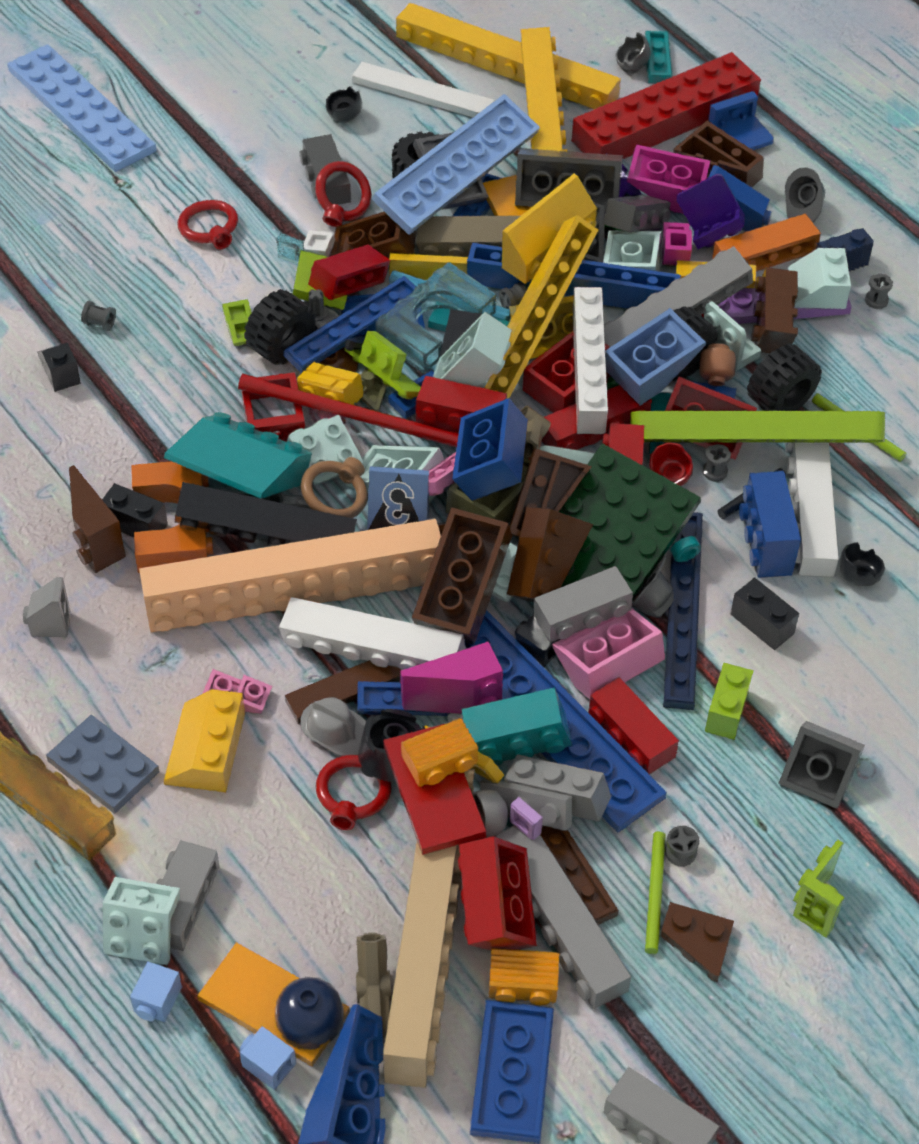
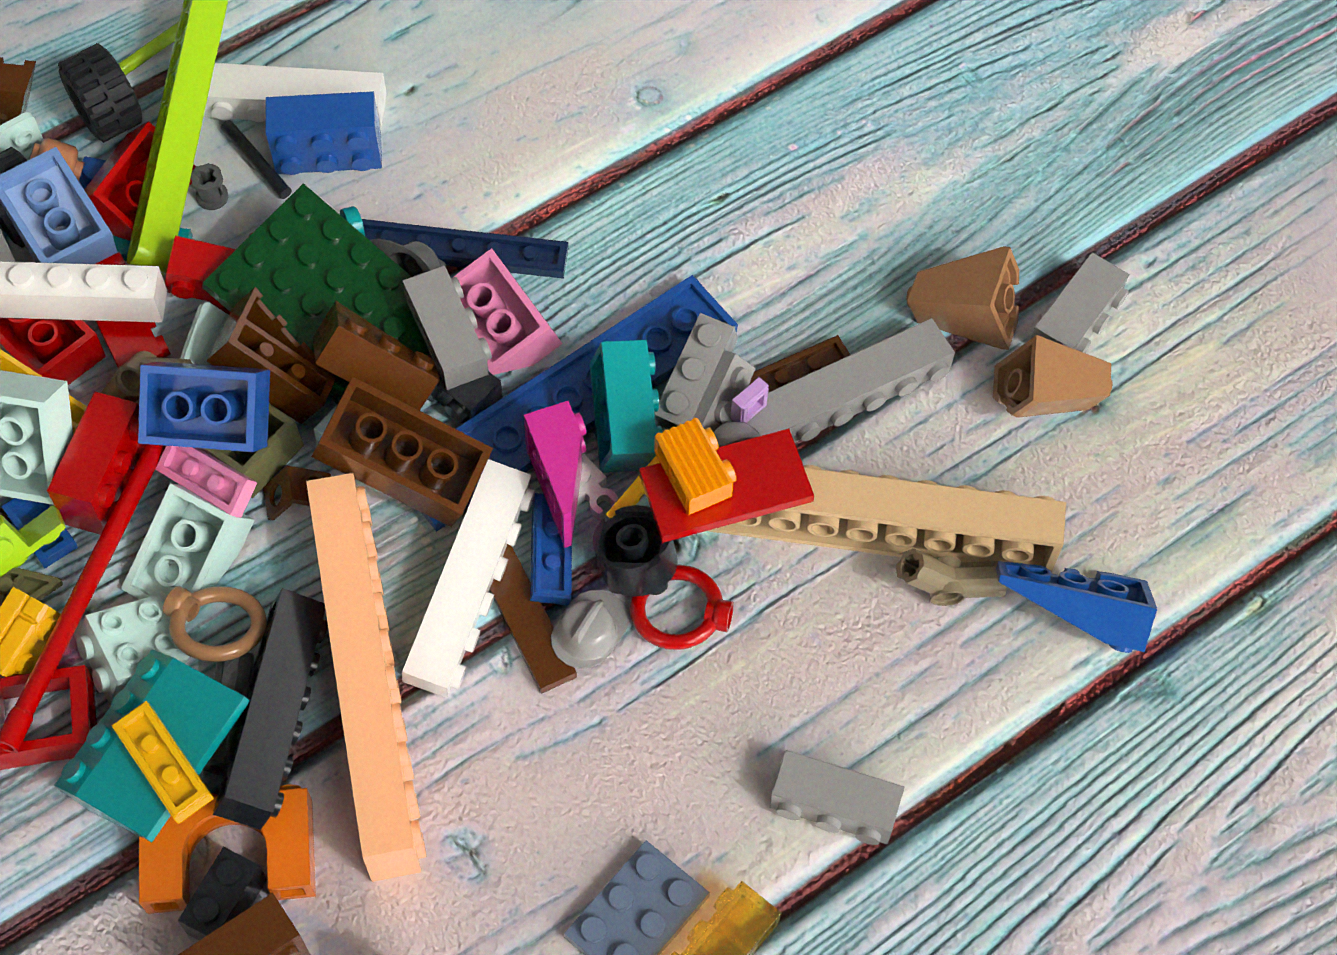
camera: 90 degrees left, 10 degrees up
(138, 920) = (882, 832): light aqua bracket -> none
(155, 992) = (969, 819): light blue brick -> none
(206, 741) = (610, 781): yellow slope -> none
(216, 453) = (162, 762): none -> yellow tile
(247, 993) = (966, 692): light orange tile -> none
(254, 691) = (530, 751): bright pink slope -> none
(267, 1057) = (1040, 690): light blue brick -> none
(309, 1012) = (988, 643): dark blue cylinder -> none
(397, 496) = (273, 538): medium blue slope -> none
(496, 895) = (853, 436): red brick -> none
(512, 1072) = (1029, 449): blue tile -> none
(524, 976) = (925, 426): light orange brick -> none
(572, 1085) = (1050, 379): none -> medium nougat slope
(633, 725) = (600, 302): red brick -> none
(655, 893) = (810, 300): lime bar -> none
(661, 1020) = (970, 297): none -> medium nougat slope
(672, 463) = (214, 227): red hair -> none
(685, 838) = (763, 261): dark grey wheel -> none
(698, 936) = (864, 263): reddish brown wing -> none
(728, 701) = (570, 204): lime brick -> none
(764, 613) = (448, 158): black brick -> none
(817, 901) = (819, 145): lime bracket -> none
(821, 764) = (653, 126): dark grey slope -> none
(861, 566) = (386, 55): black hair -> none

